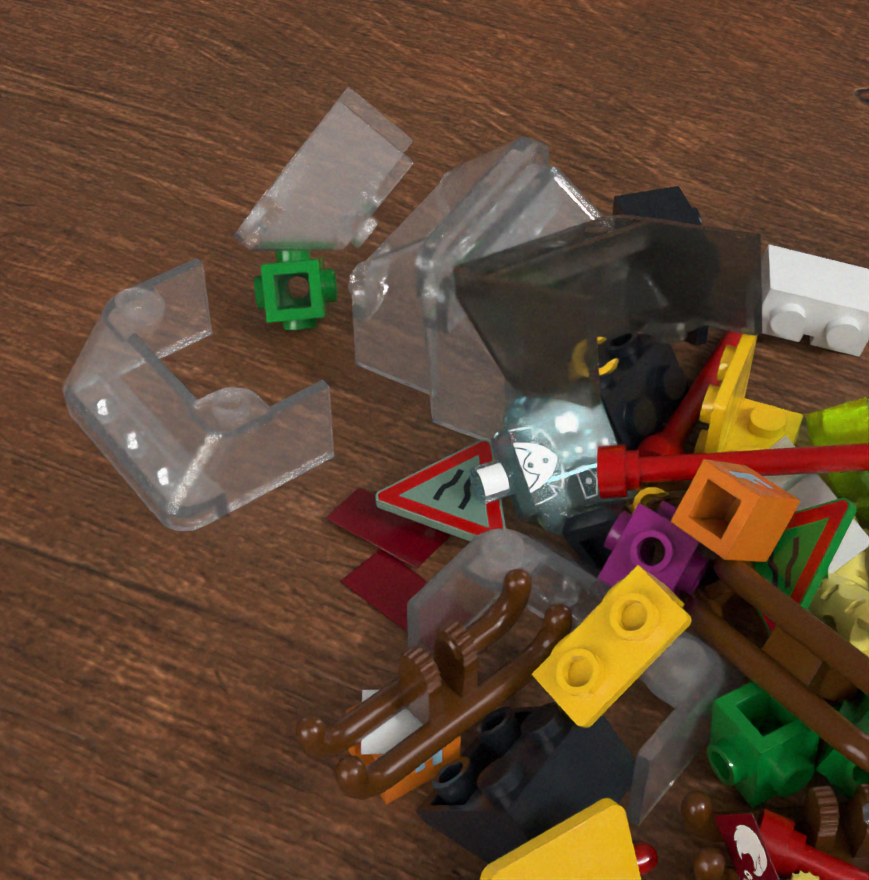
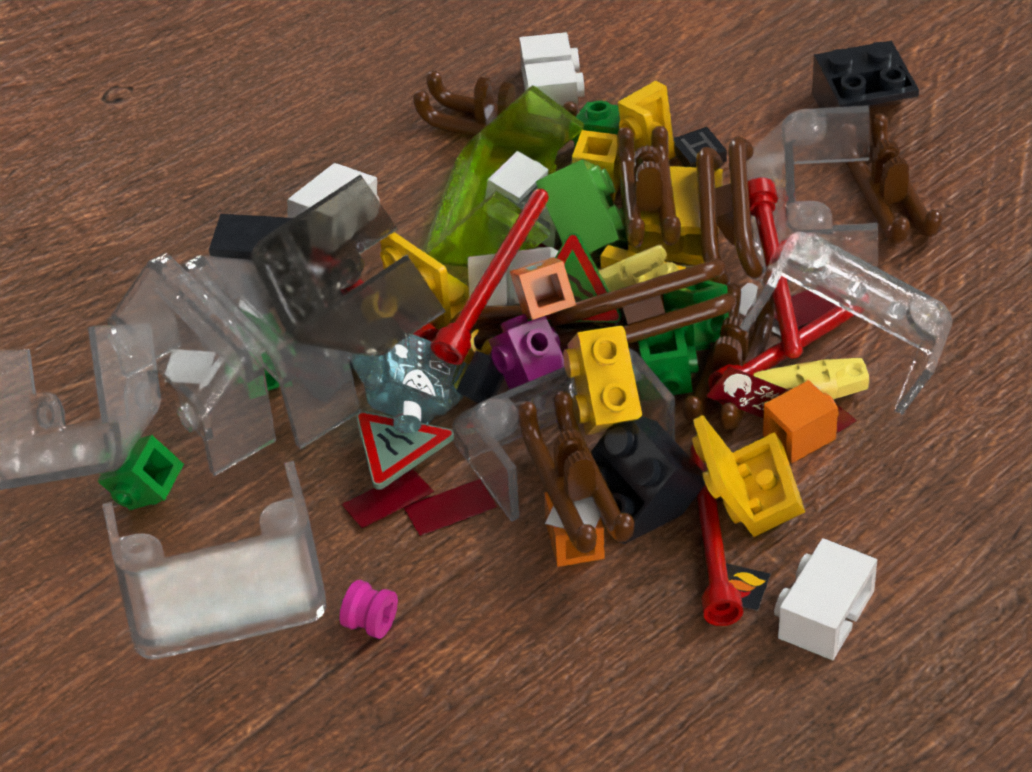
camera: 65 degrees left, 0 degrees up
(174, 562) = (368, 609): none -> dark pink wheel

